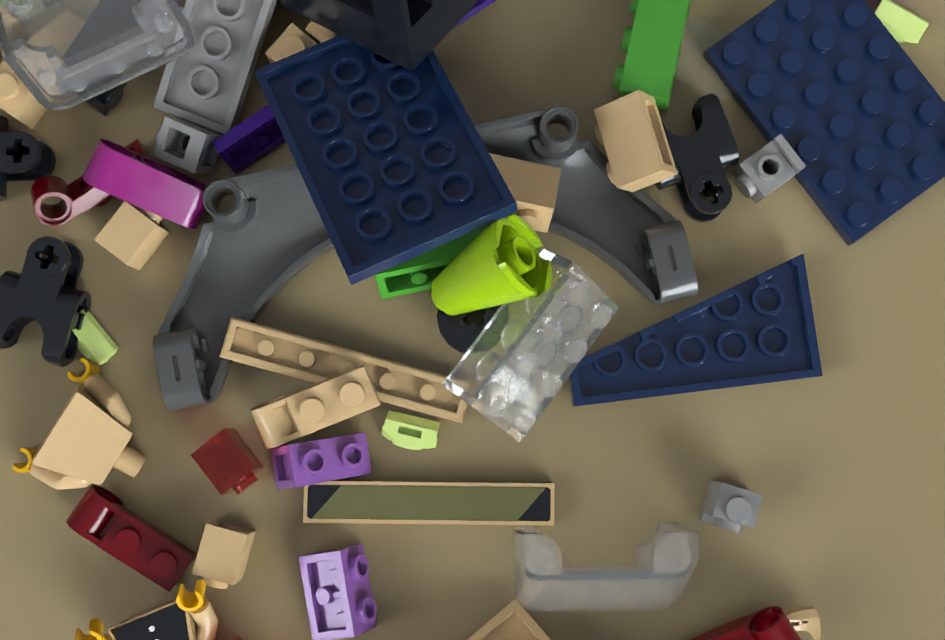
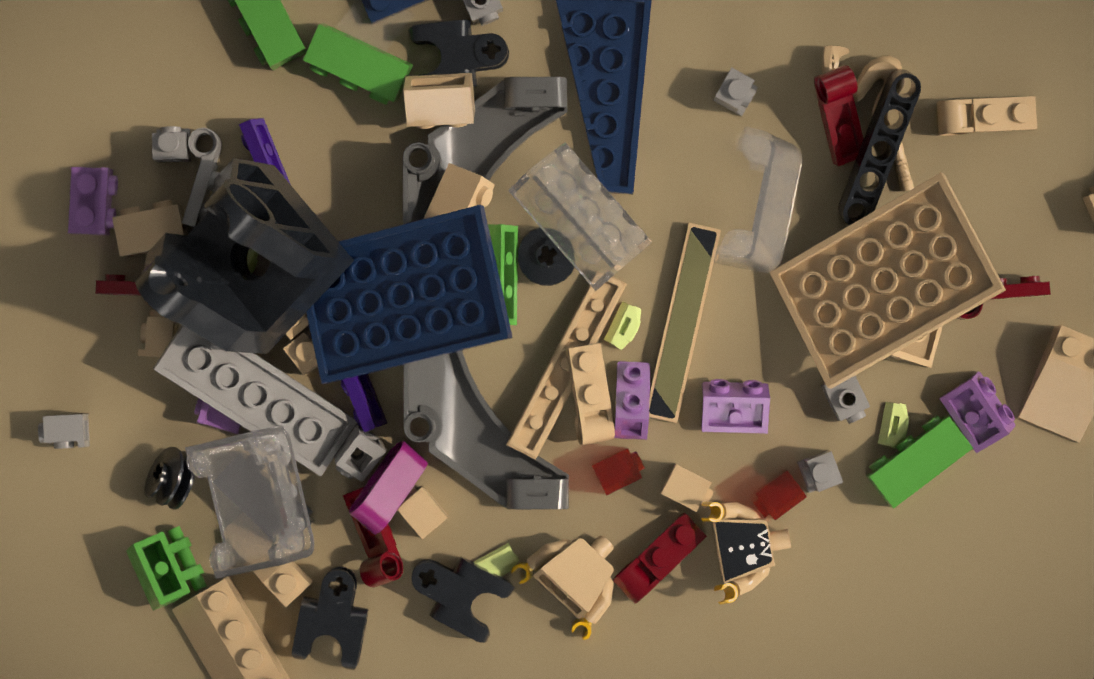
camera: 75 degrees left, 5 degrees up
(493, 269) = (520, 232): lime cone -> none

